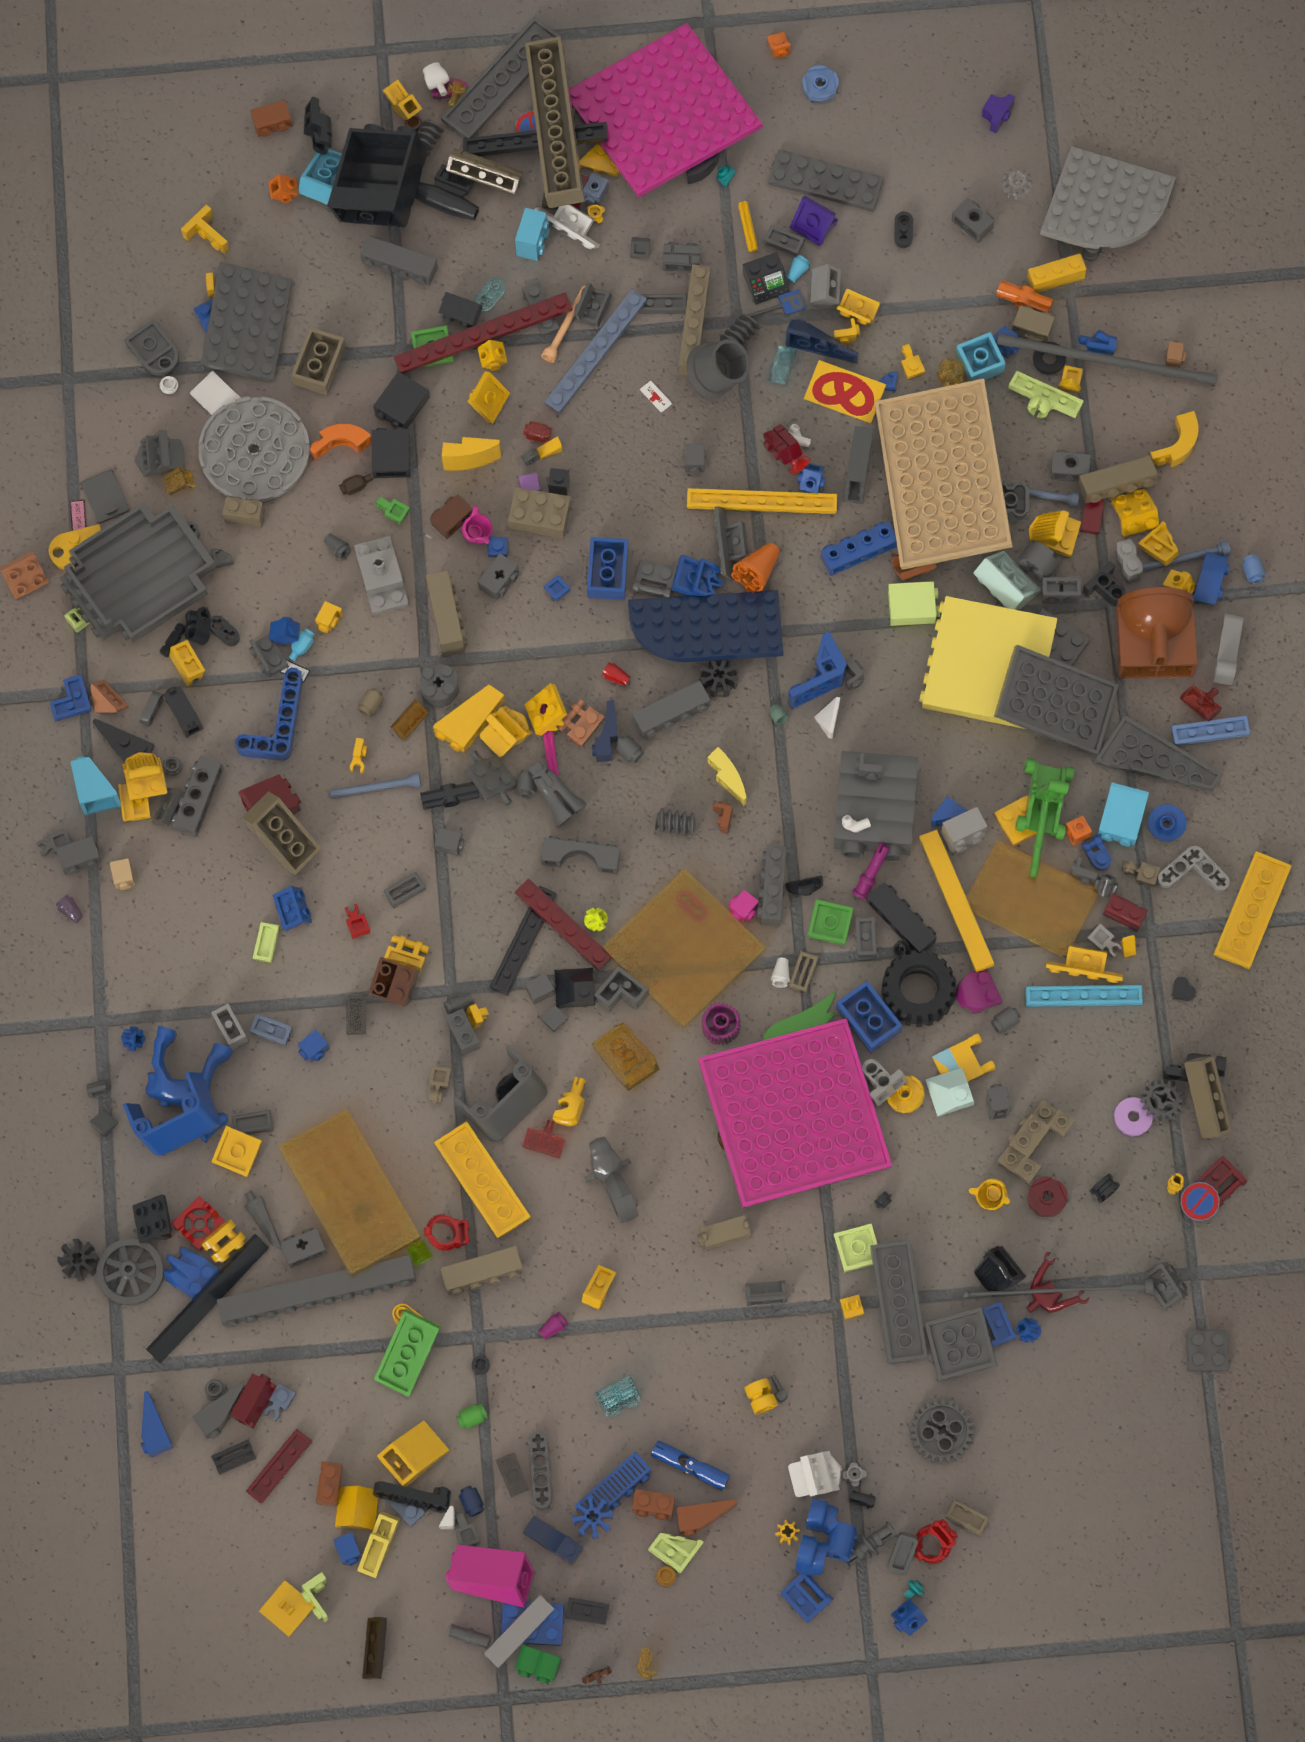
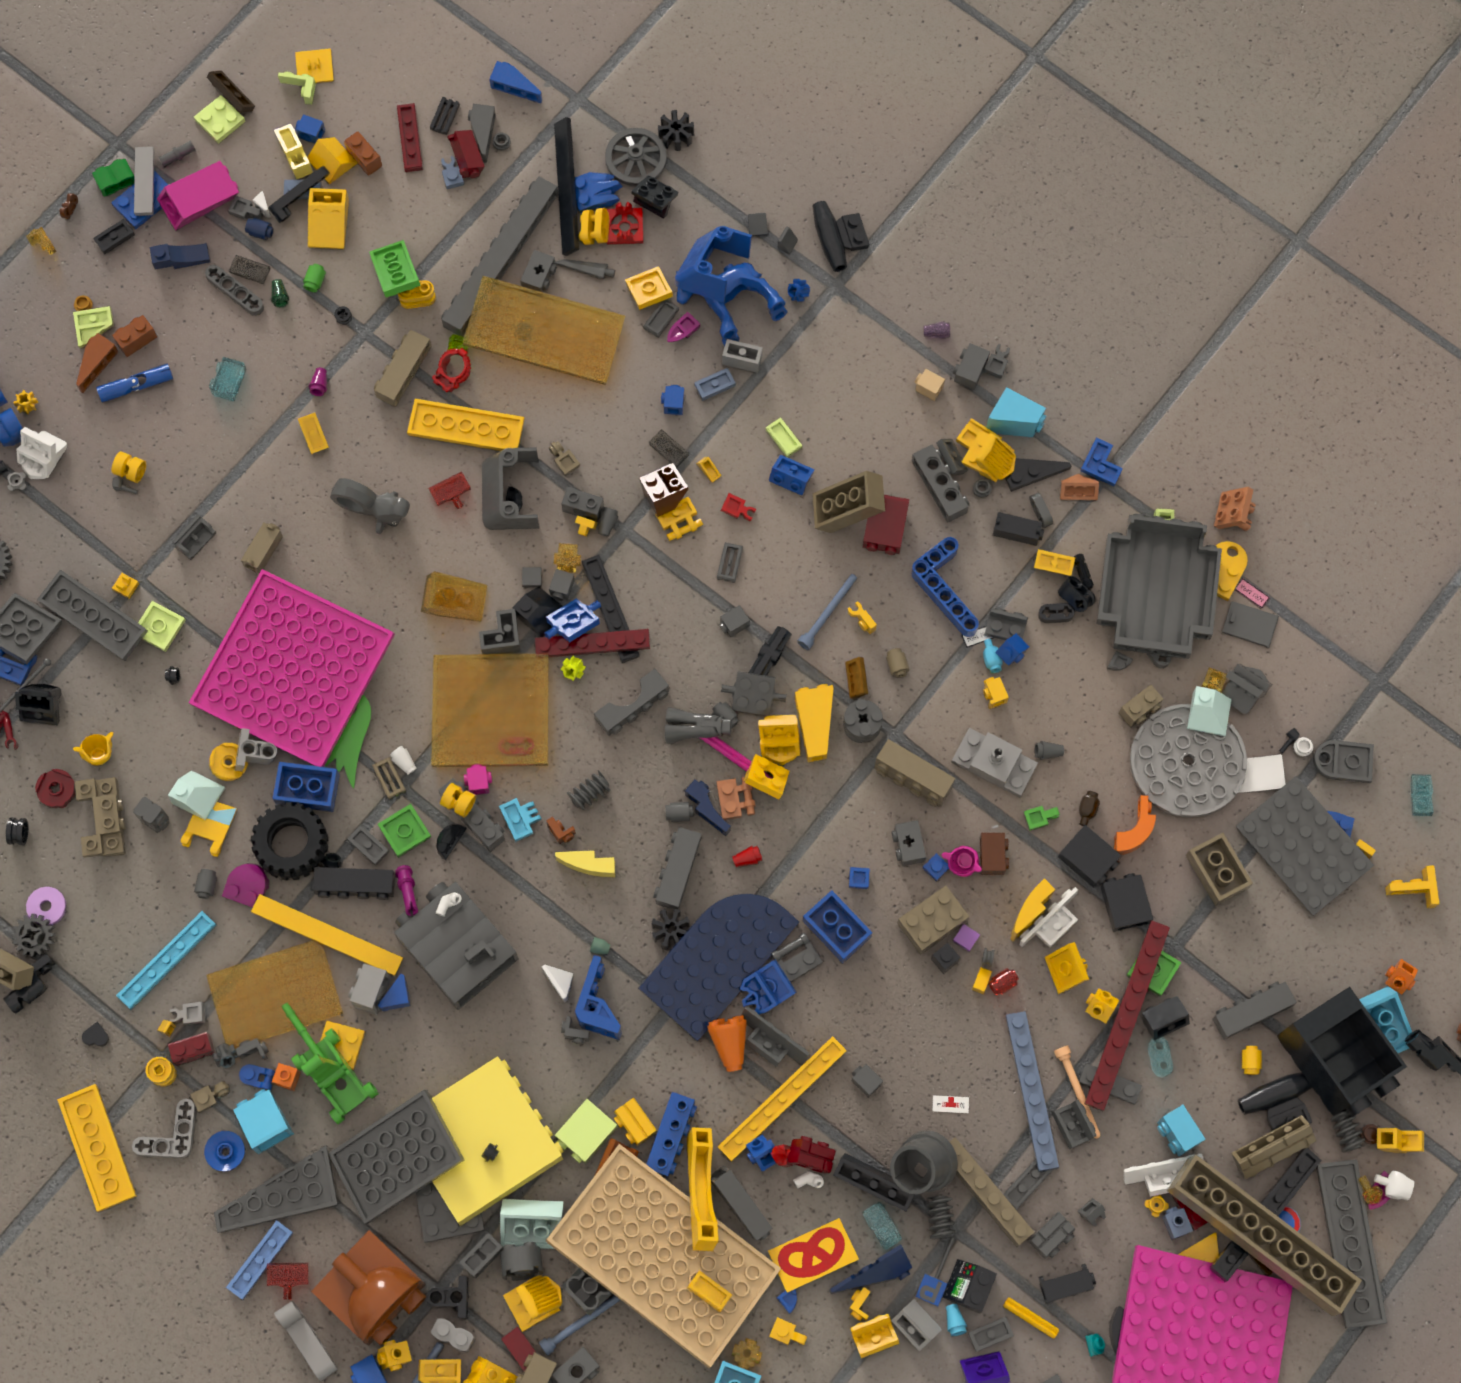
camera: 130 degrees right, 0 degrees up
(55, 1053) = (838, 235): none -> black plate
(132, 282) = (1421, 795): none -> clear light blue slope
(167, 397) = (1293, 735): none -> black hand
(205, 461) = (1209, 711): none -> light aqua slope
(246, 1095) = (683, 328): none -> magenta plate
(343, 973) = (709, 469): none -> yellow piece
(406, 1635) = (219, 119): none -> yellowish green plate
(436, 234) = (1252, 1060): none -> yellow brick
(455, 431) = (1054, 924): none -> white bracket
(510, 1430) = (279, 295): none -> clear green cone
(516, 1008) = (567, 557): none -> clear yellow brick
(560, 951) = (573, 620): none -> blue plate
(571, 1115) = (456, 531): yellow piece -> none
(597, 1511) = (161, 282): blue gear -> none
(618, 1484) = (171, 321): blue brick -> none
(705, 221) = (1067, 1285): none -> black brick
(721, 1034) = (404, 672): magenta brick -> none
(742, 852) = (519, 818): none -> medium azure hinge
(760, 395) = (872, 1181): none -> black brick
(775, 888) = (458, 800): none -> yellow wheel
(854, 514) = (703, 1219): none -> yellow arch
(873, 578) = (635, 1122): none -> yellow brick
(936, 423) = (709, 1291): none -> yellow tile
(991, 640) = (490, 1152): none -> black plate
(1086, 962) = (184, 981): yellow bracket -> none
(1160, 916) = (161, 1071): none -> yellow wheel

